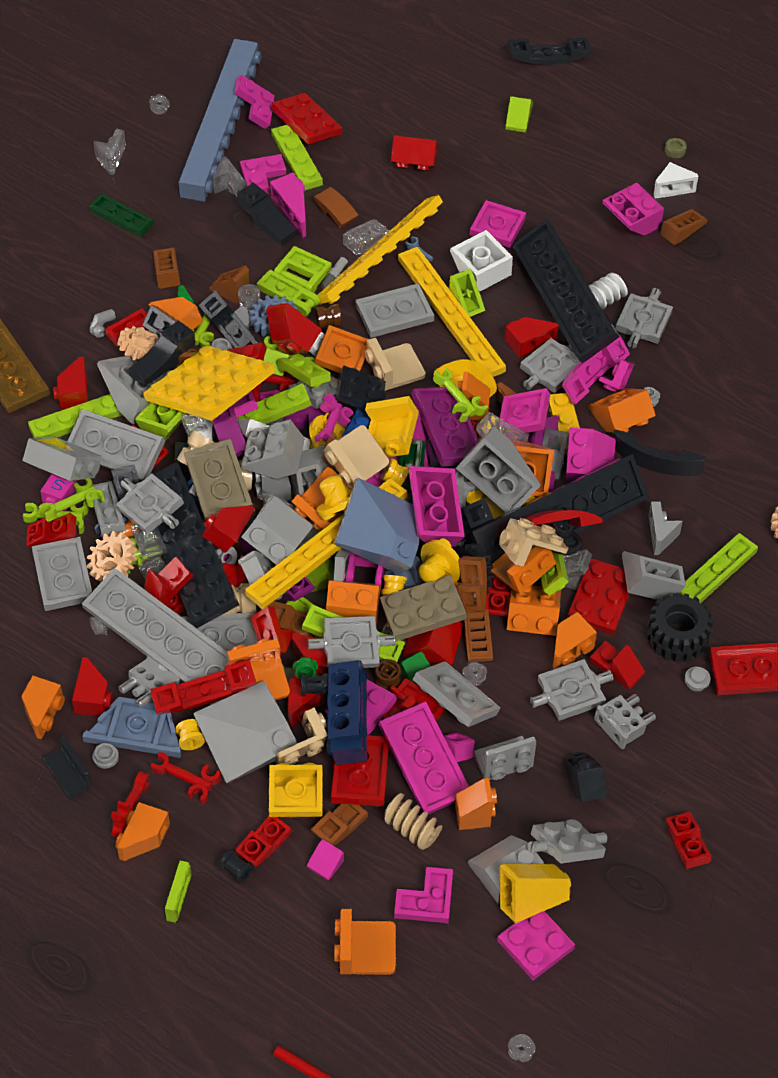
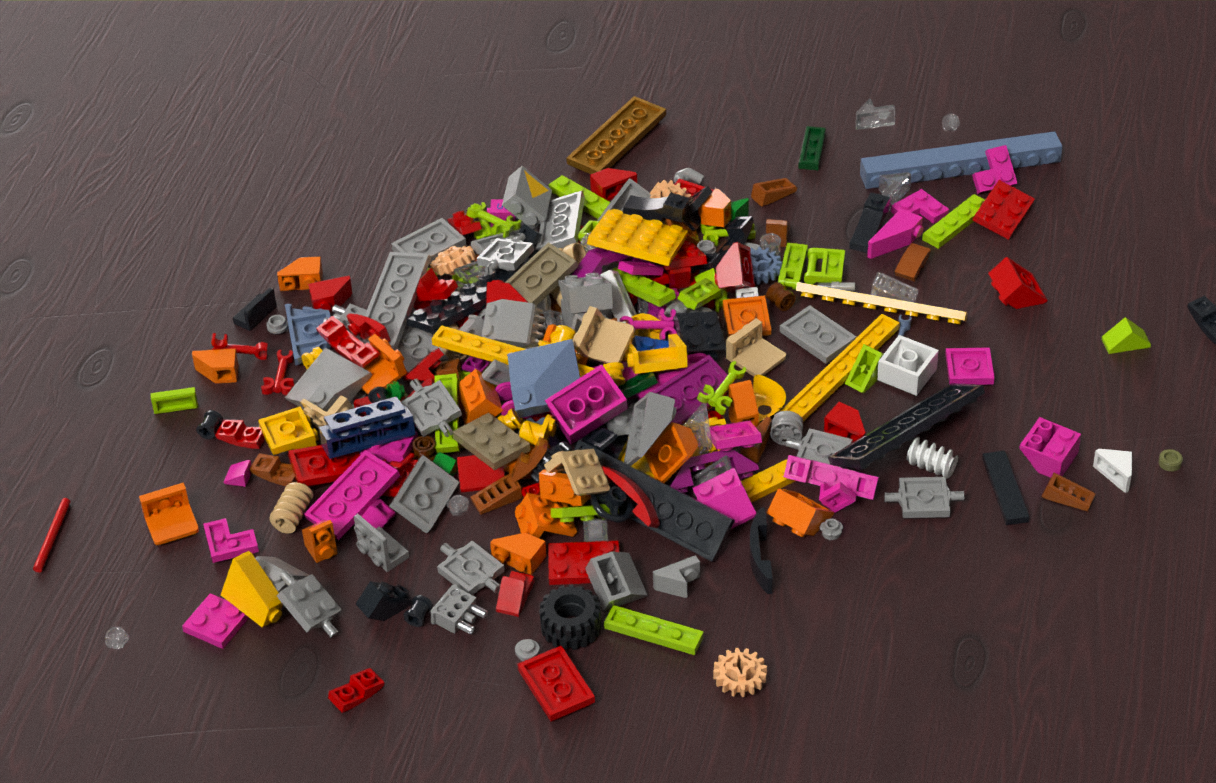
camera: 70 degrees right, 10 degrees down
(186, 666) = (366, 327): none -> red slope
(514, 375) = (786, 425): none -> light grey wheel
(609, 752) = (418, 610): none -> black bush
(655, 262) = (1005, 487): none -> black tile

